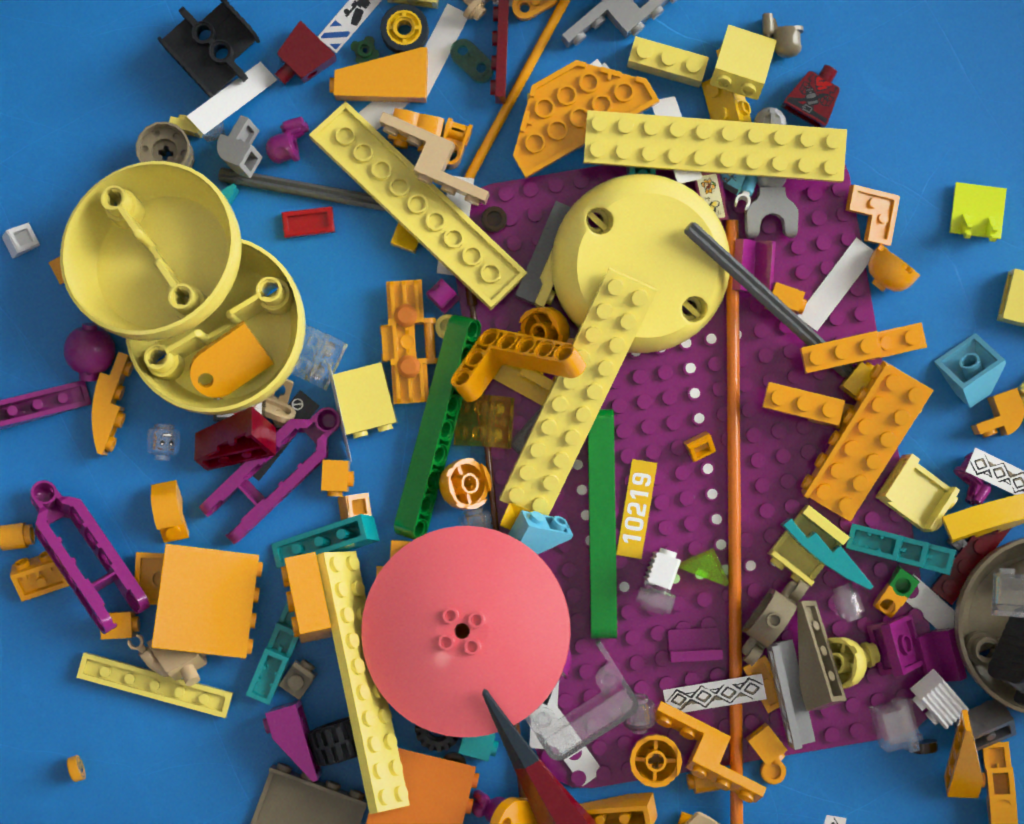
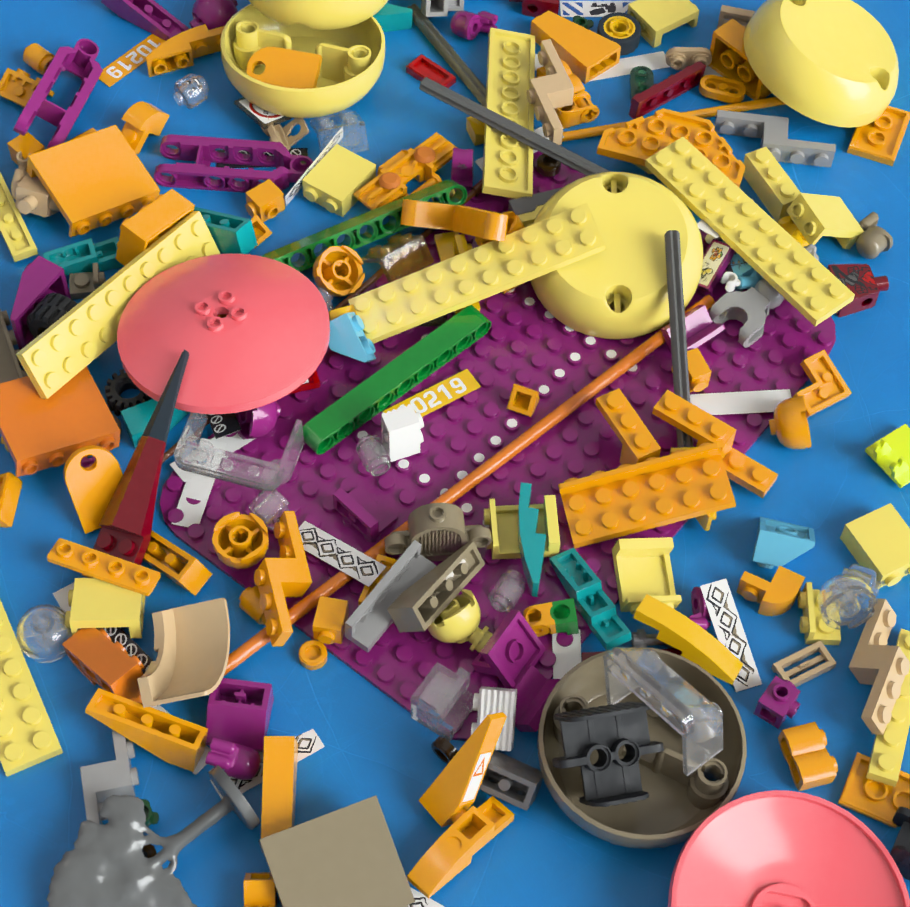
camera: 45 degrees right, 30 degrees down
(73, 454) = (129, 60): none -> light orange sticker
(235, 440) = (234, 119): dark red wedge -> none
(451, 227) = (510, 128): none -> dark grey axle
(705, 565) = (434, 467): clear neon green slope -> none

